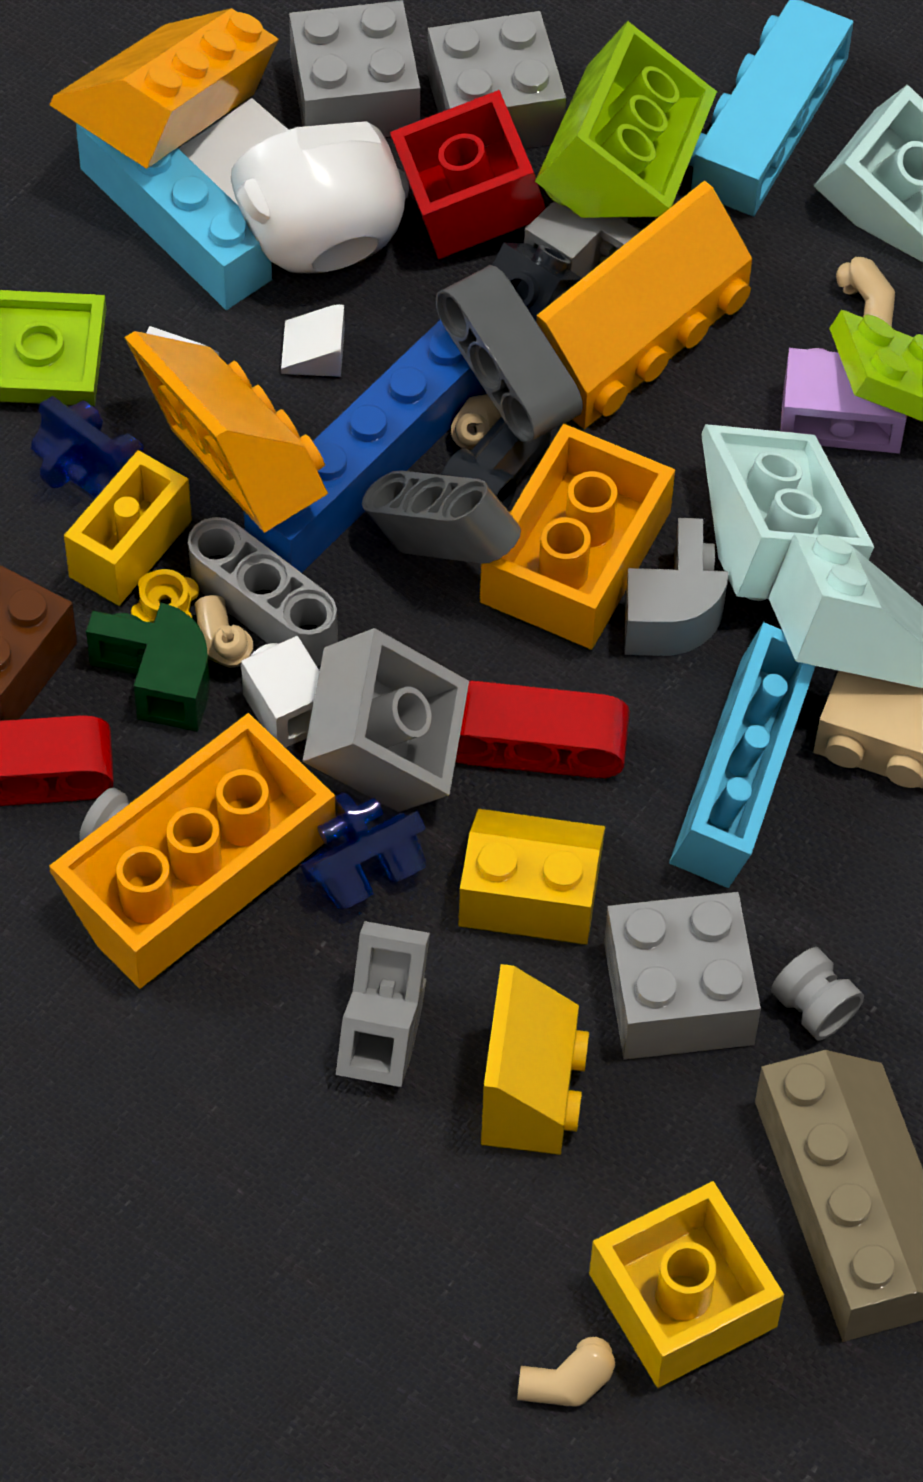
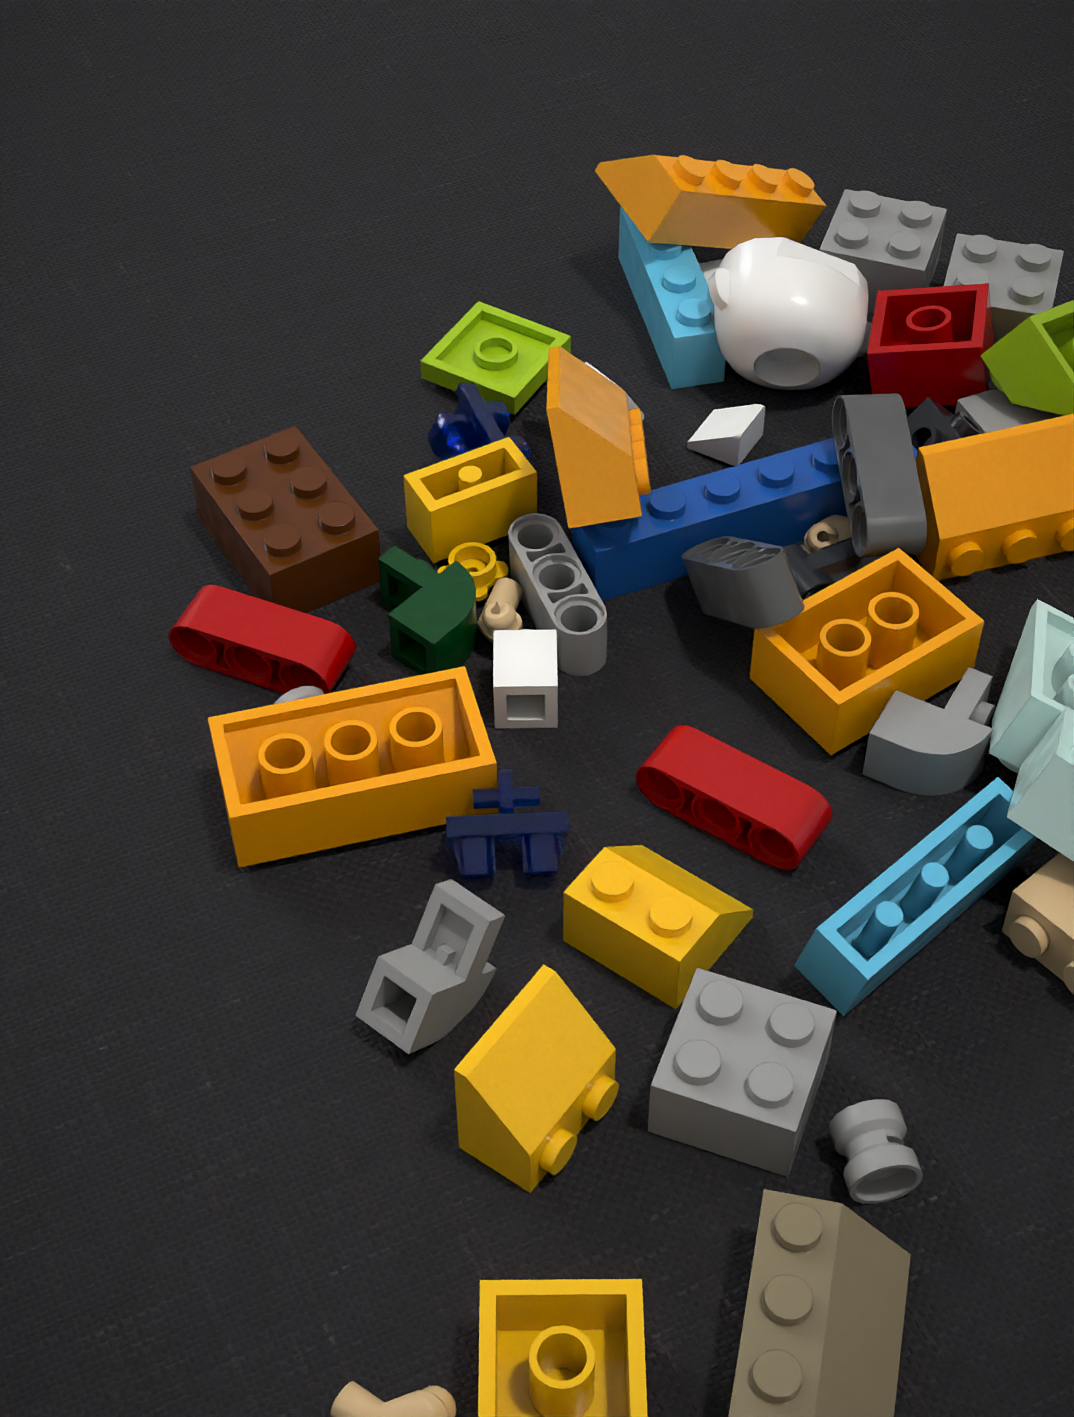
camera: 30 degrees right, 10 degrees down
(386, 720) = (587, 724): light grey brick -> none

